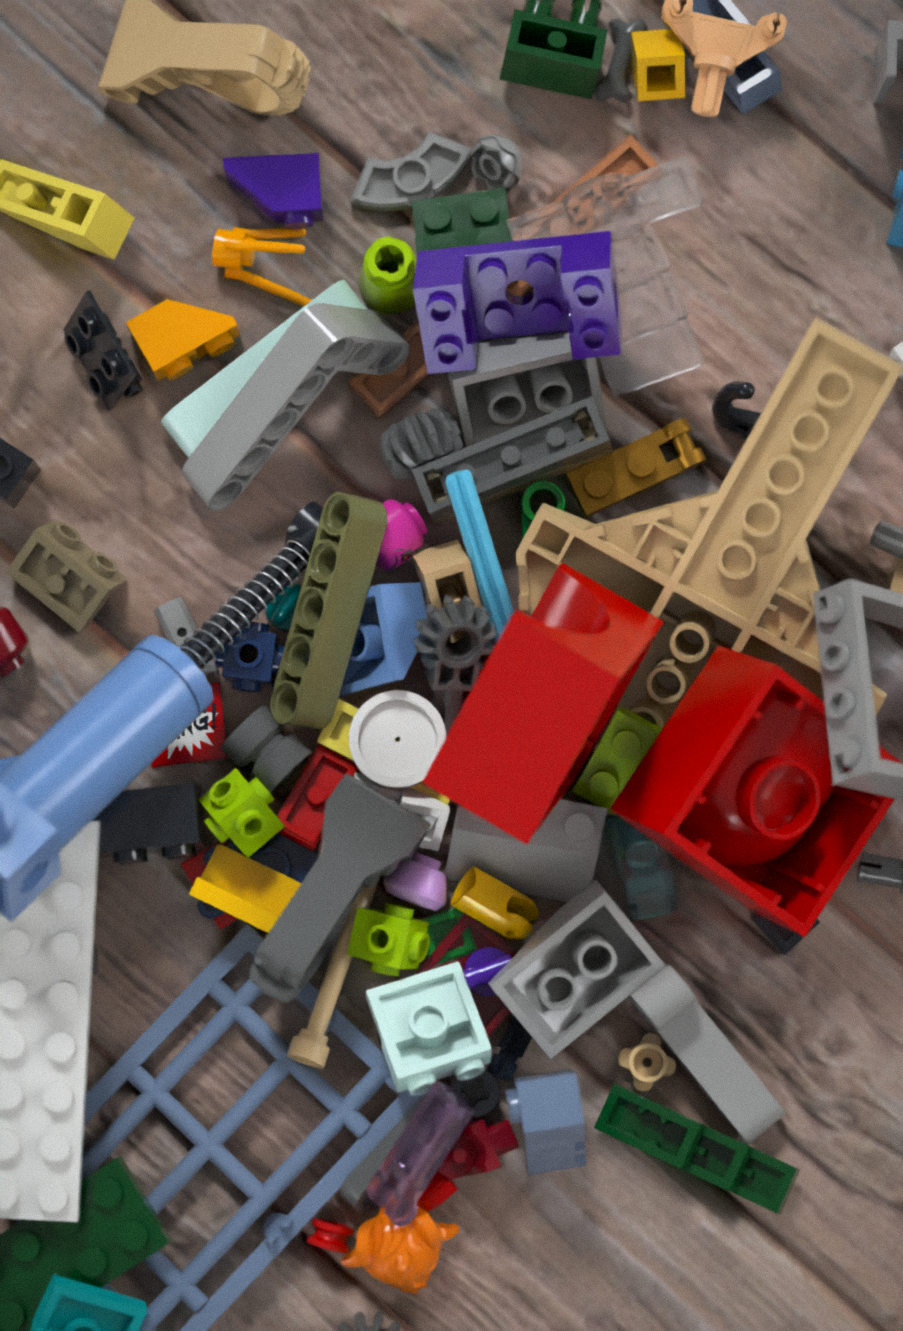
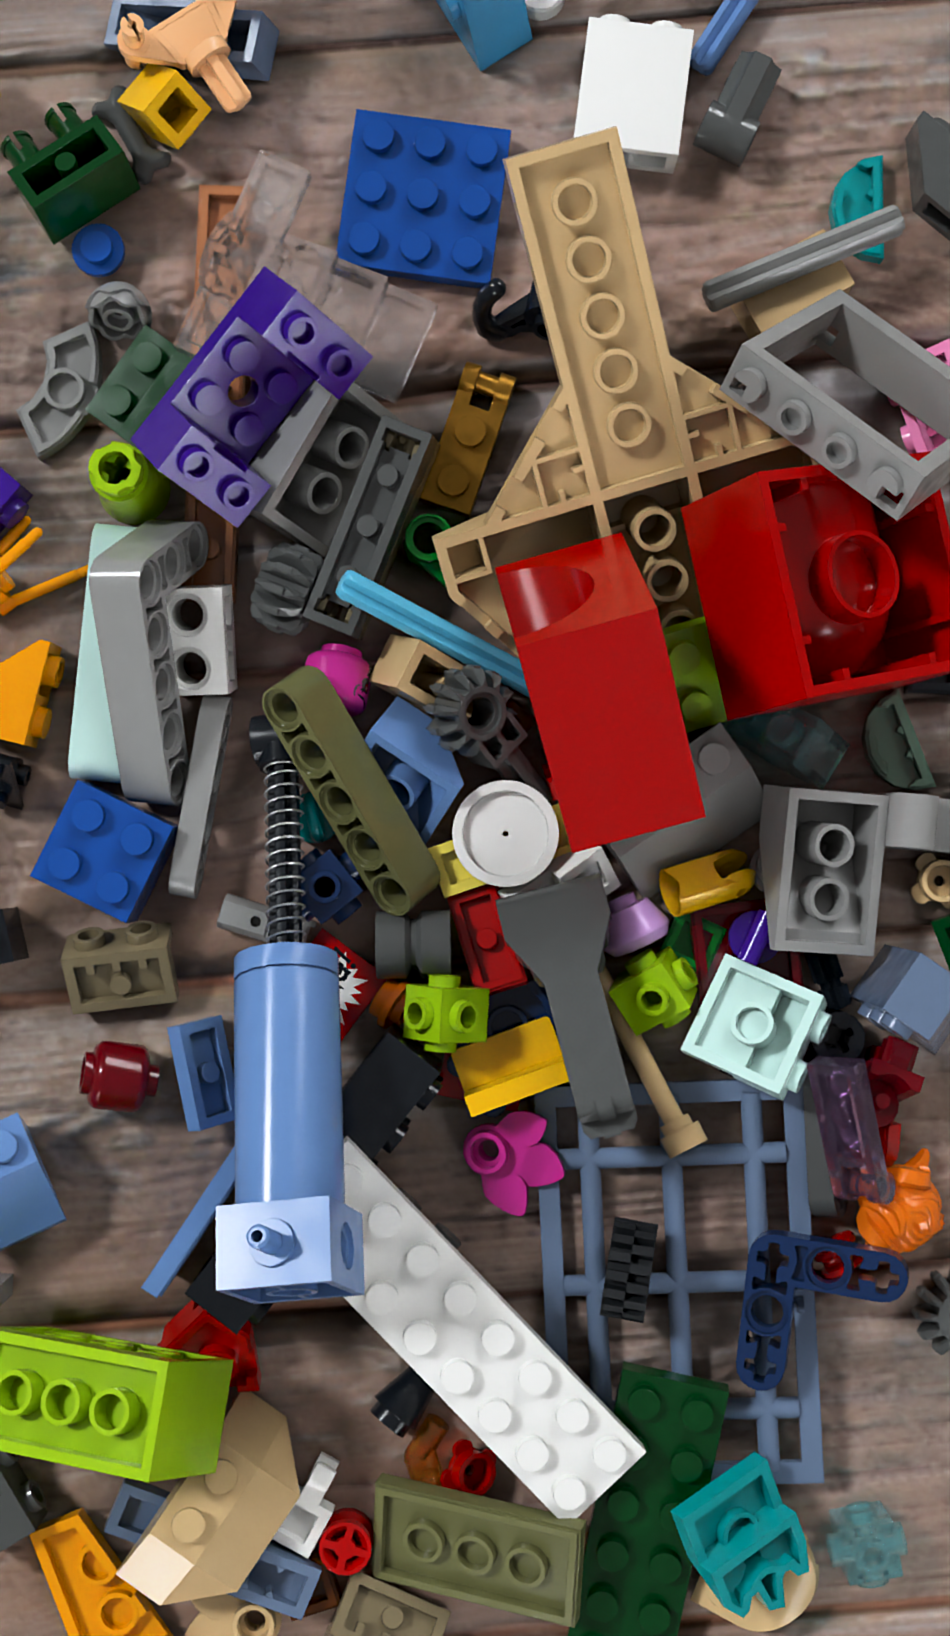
camera: 40 degrees left, 5 degrees up
(49, 692) = (203, 1072): none -> medium blue plate
(135, 491) = (106, 851): none -> blue brick
(186, 1095) = (629, 1269): none -> black tyre
(189, 961) = (520, 1160): none -> dark pink plate
(210, 770) = (389, 1003): none -> orange plate
(230, 517) = (200, 796): none -> light grey beam
(291, 1211) = (800, 1273): none -> dark blue beam
(338, 426) = (211, 640): none -> white brick
(524, 111) = (98, 250): none -> blue plate
(707, 944) = (893, 746): none -> sand green tile
(763, 286) = (423, 198): none -> blue plate

